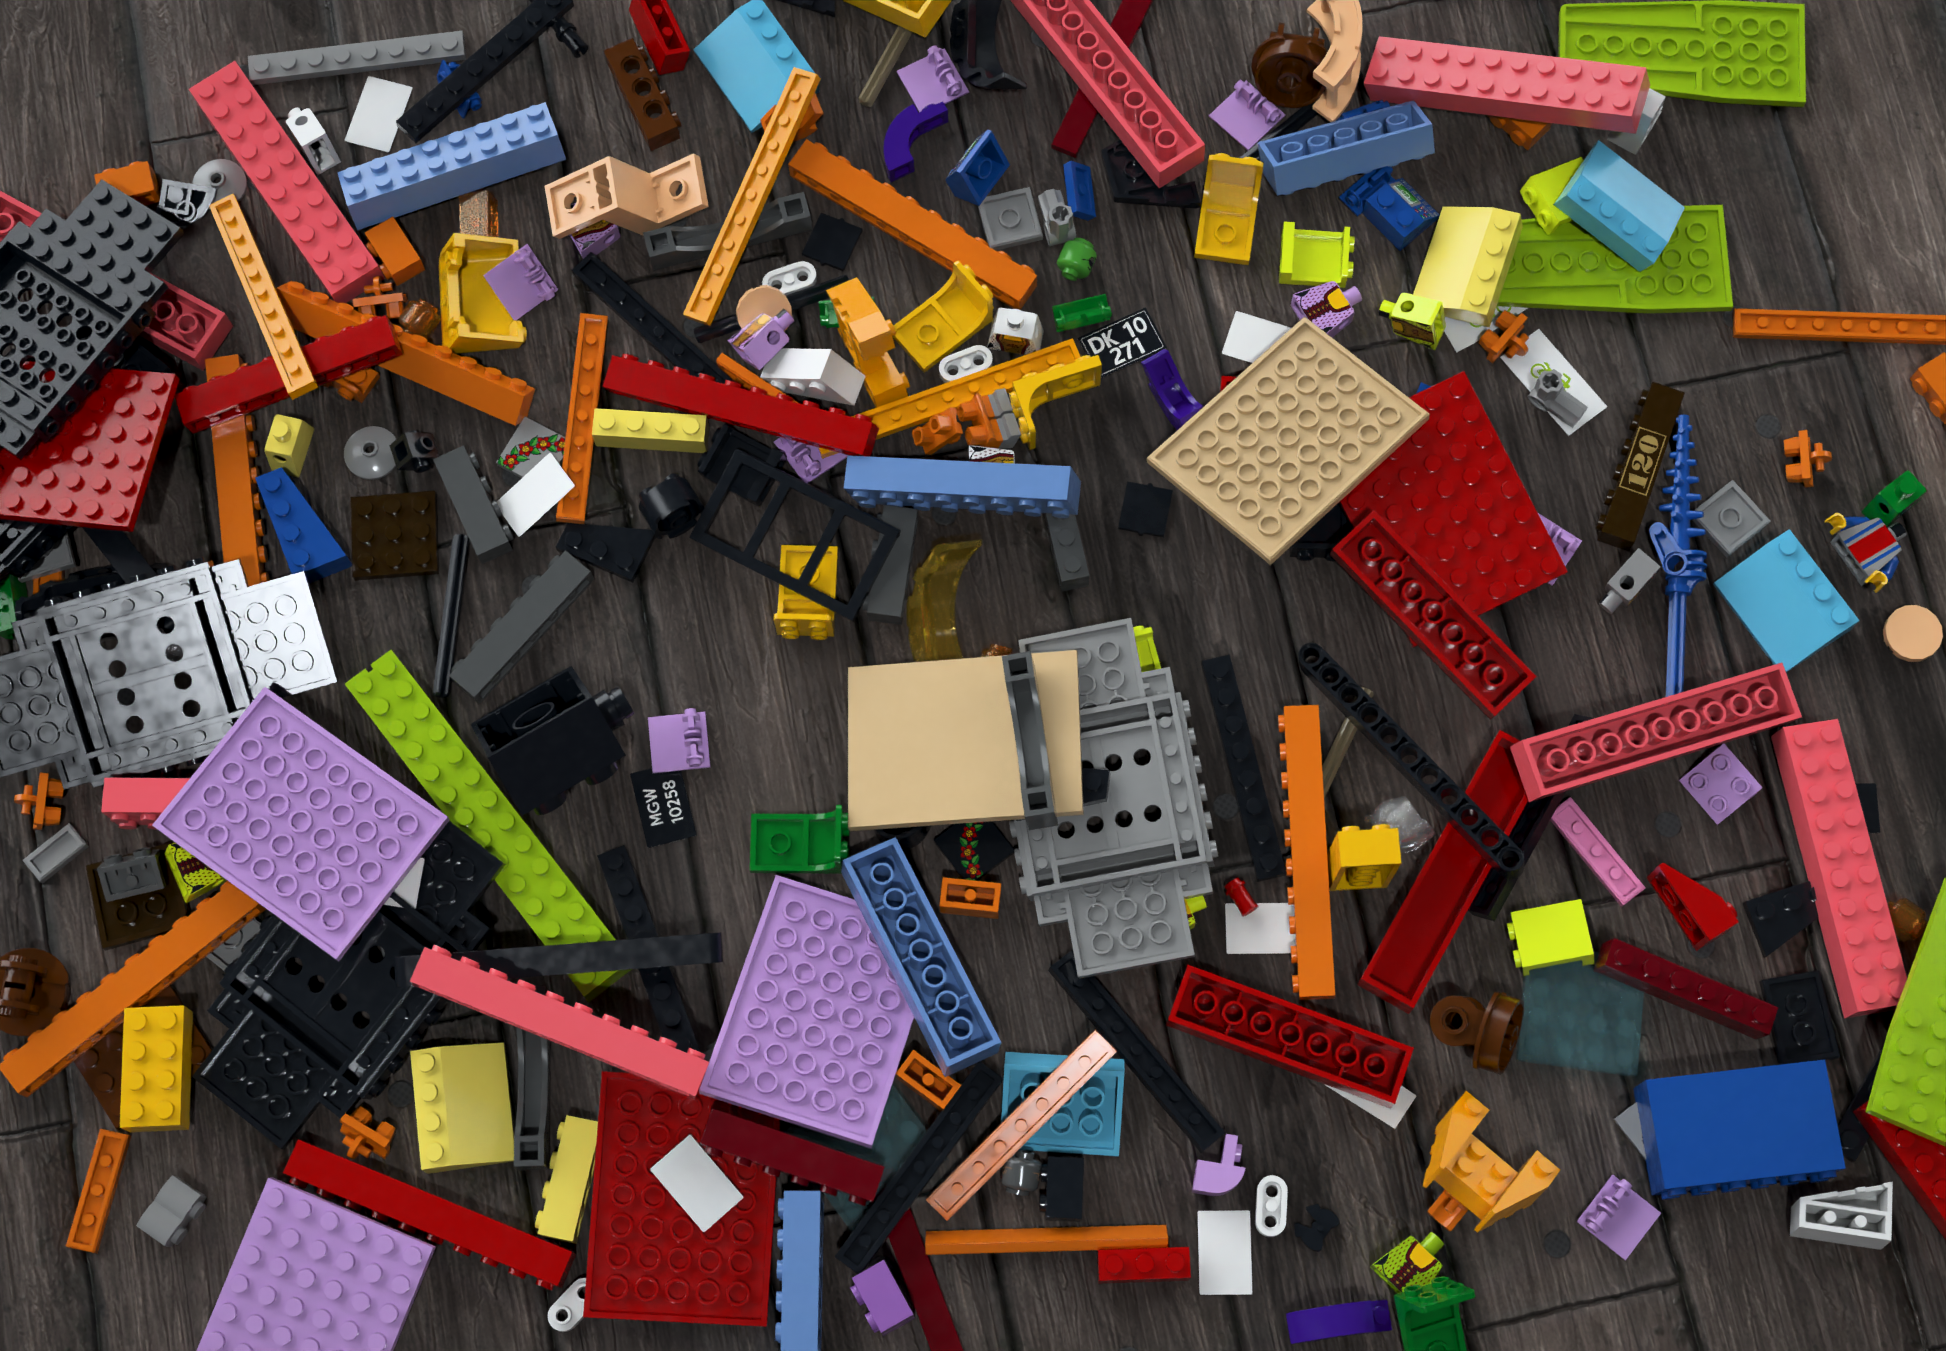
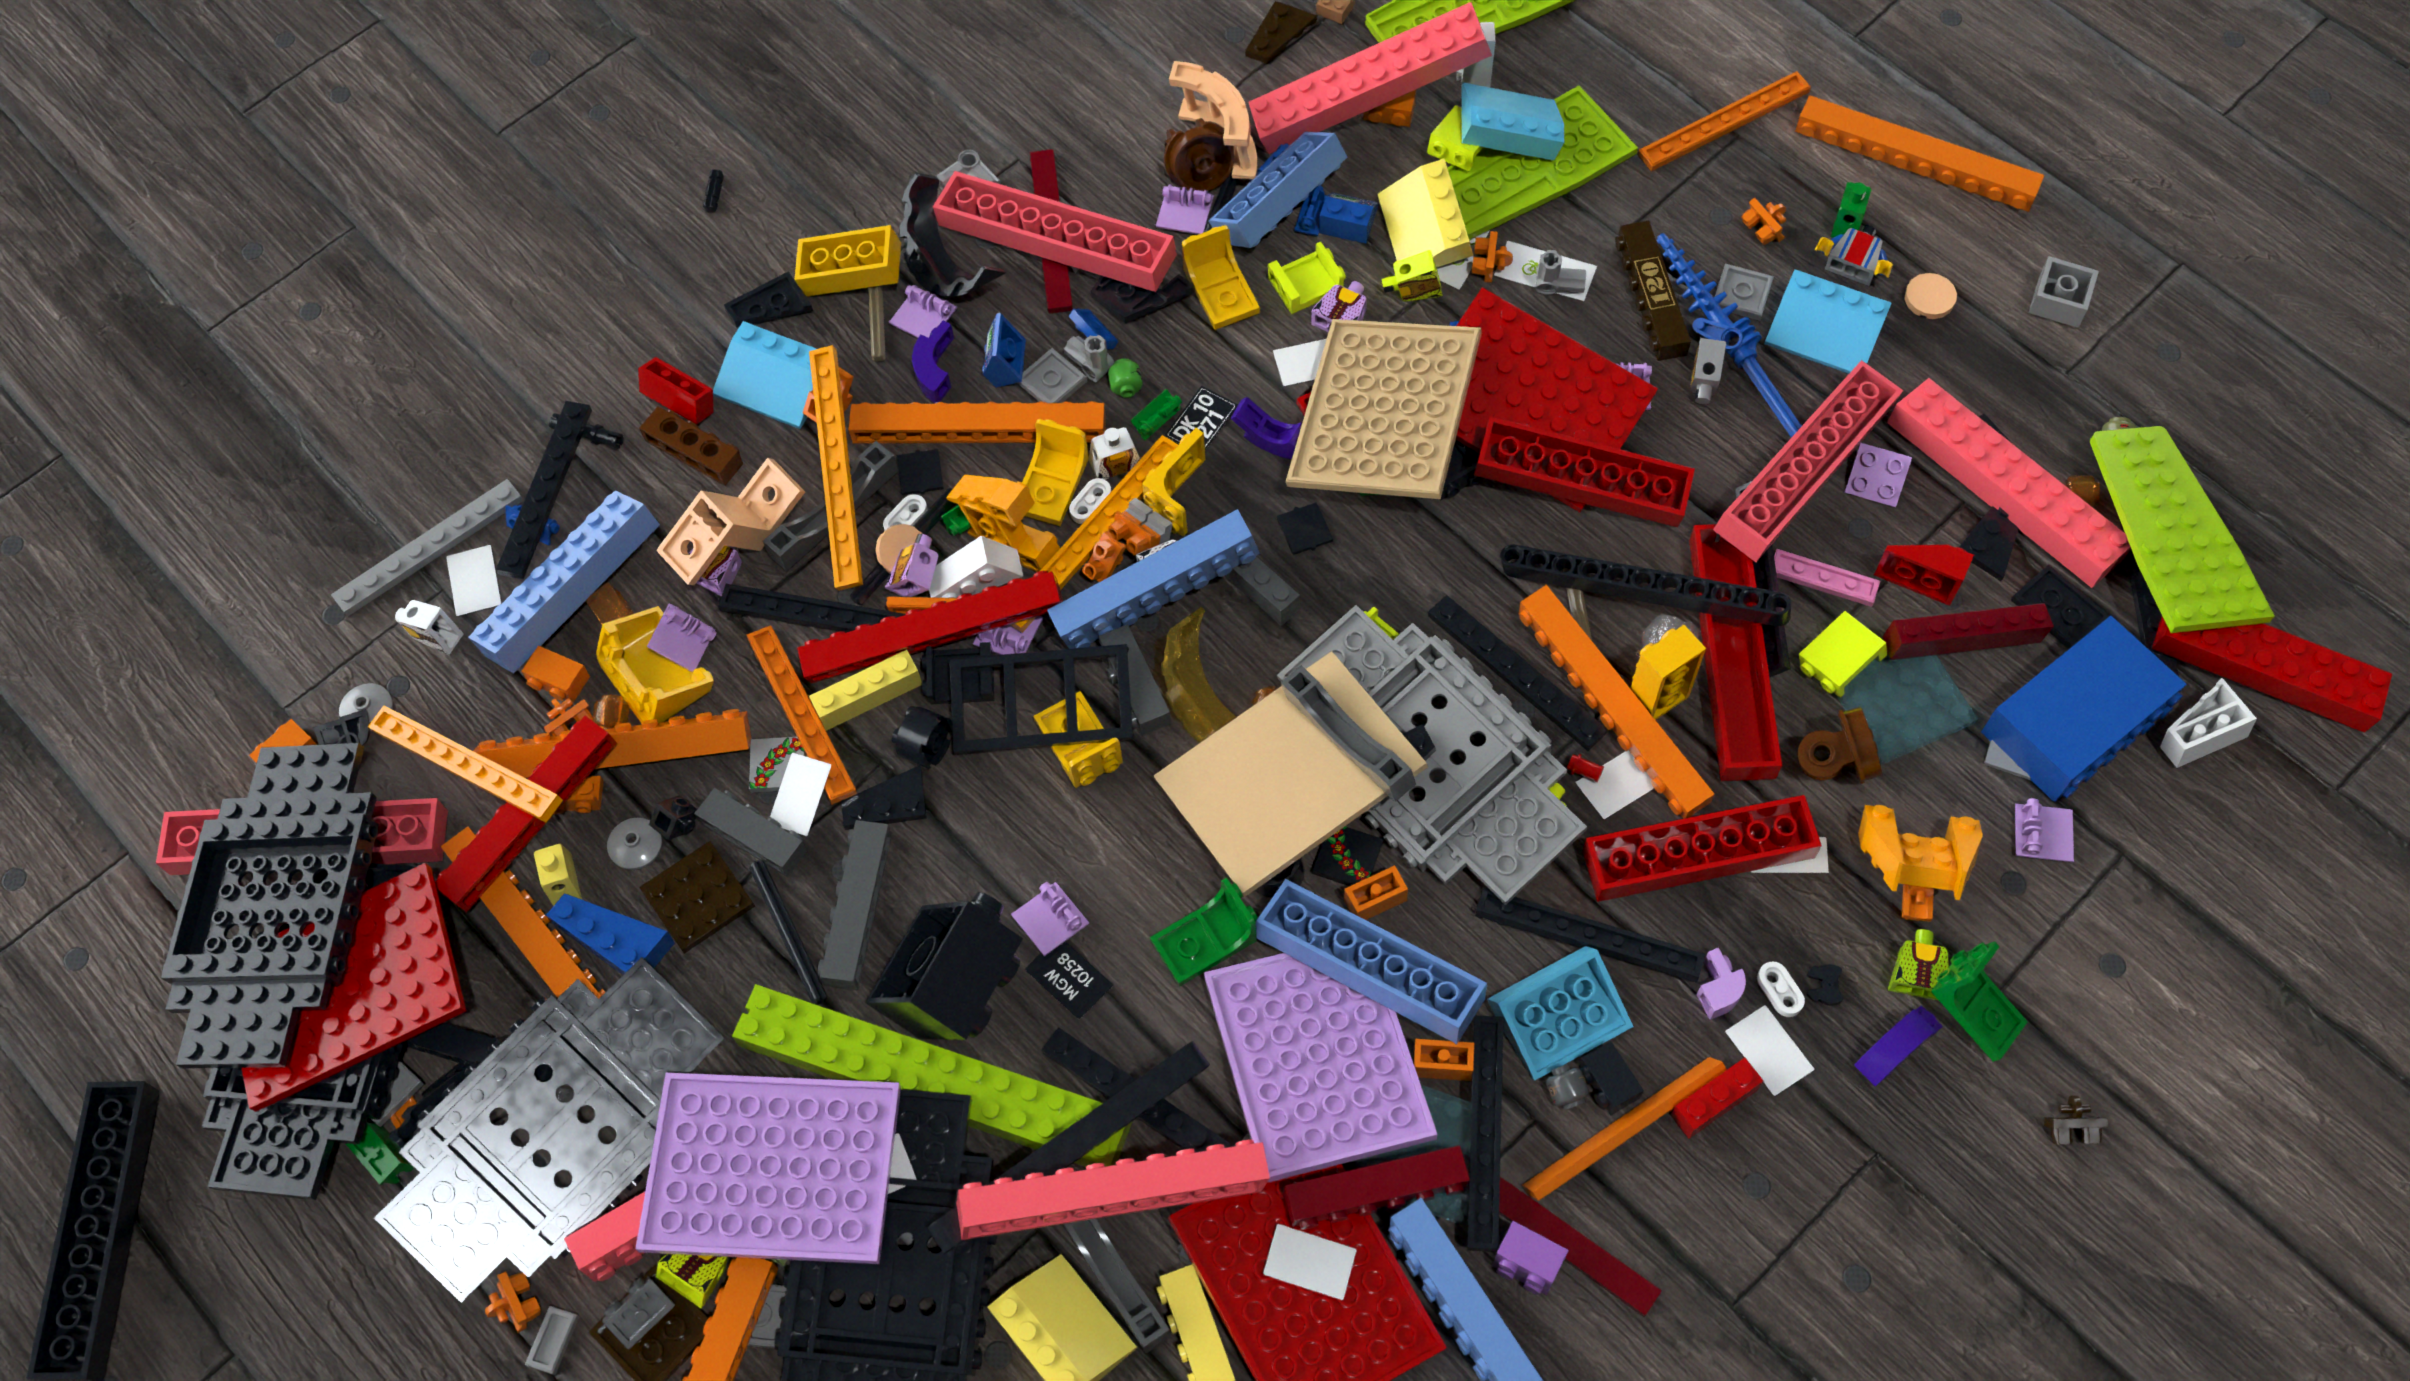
camera: 30 degrees left, 10 degrees down
(286, 183) = (426, 671): coral brick -> none
(1020, 1125) = (1543, 1046): orange tile -> none

